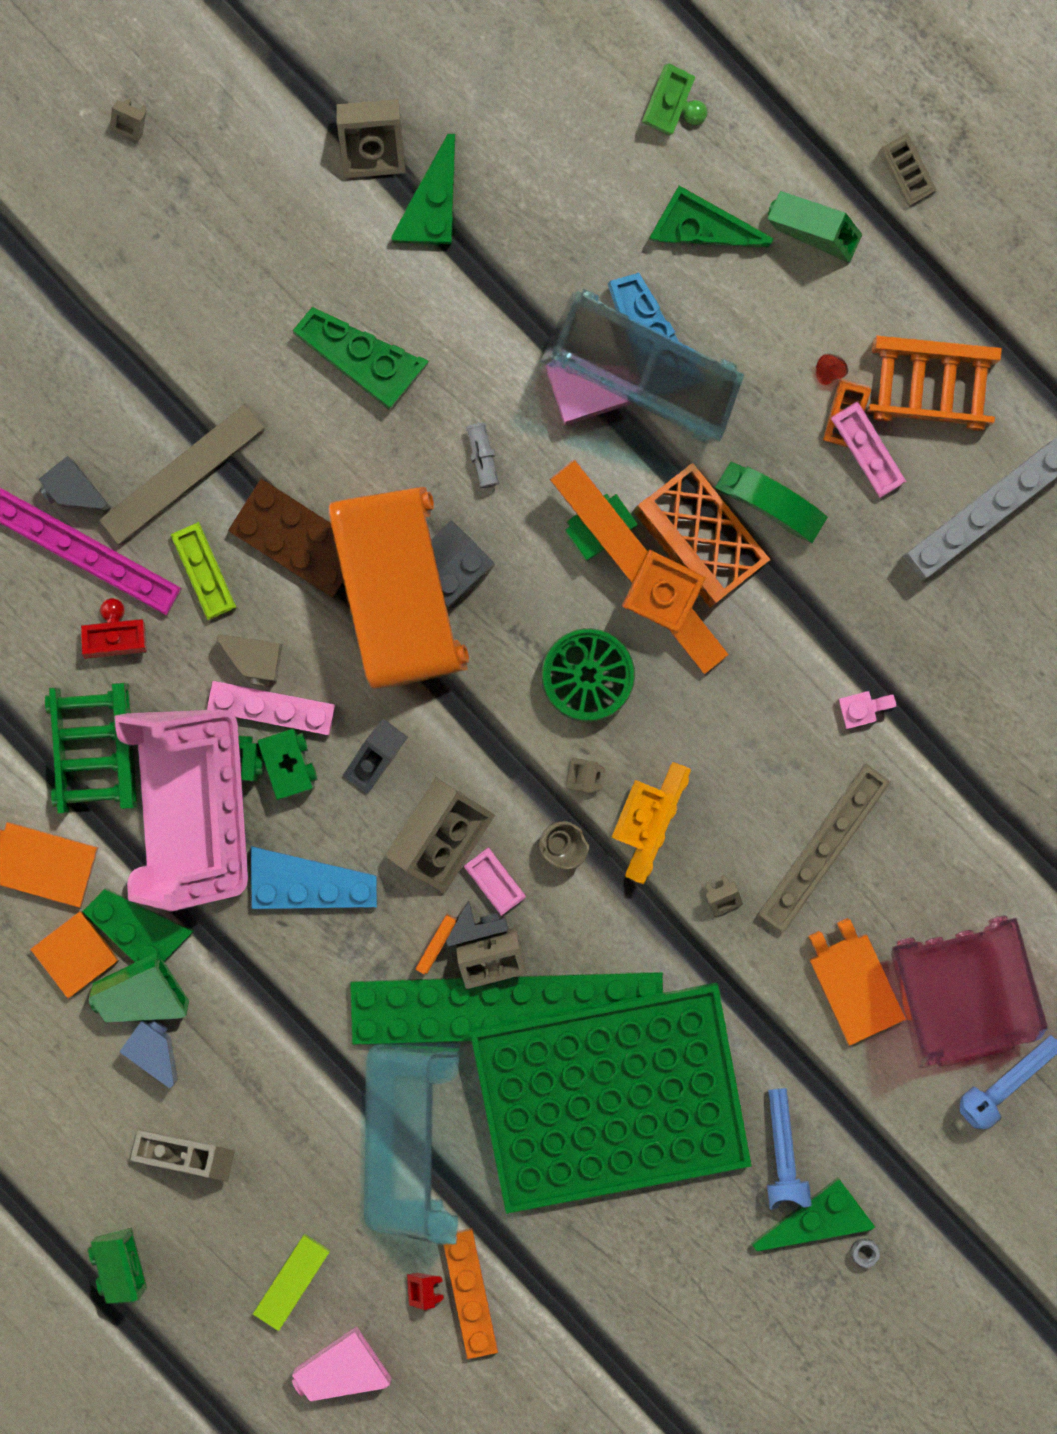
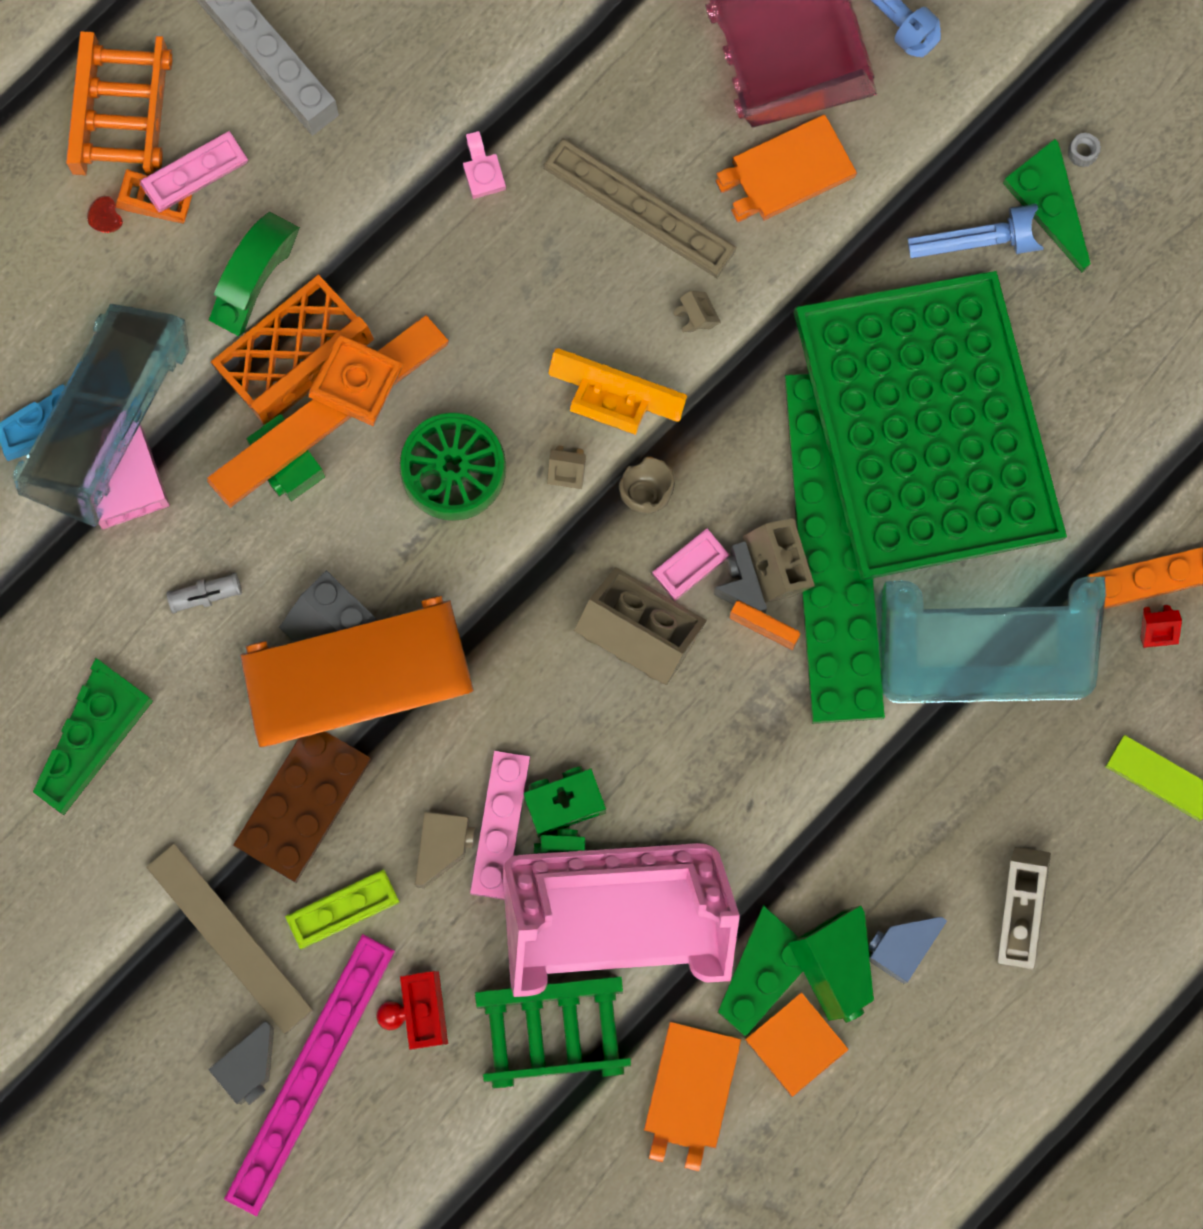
camera: 90 degrees left, 10 degrees down
(118, 1266) = (1157, 976): green slope -> none
(296, 882) = (702, 780): dark azure wing -> none
(375, 755) = (552, 701): dark grey slope -> none

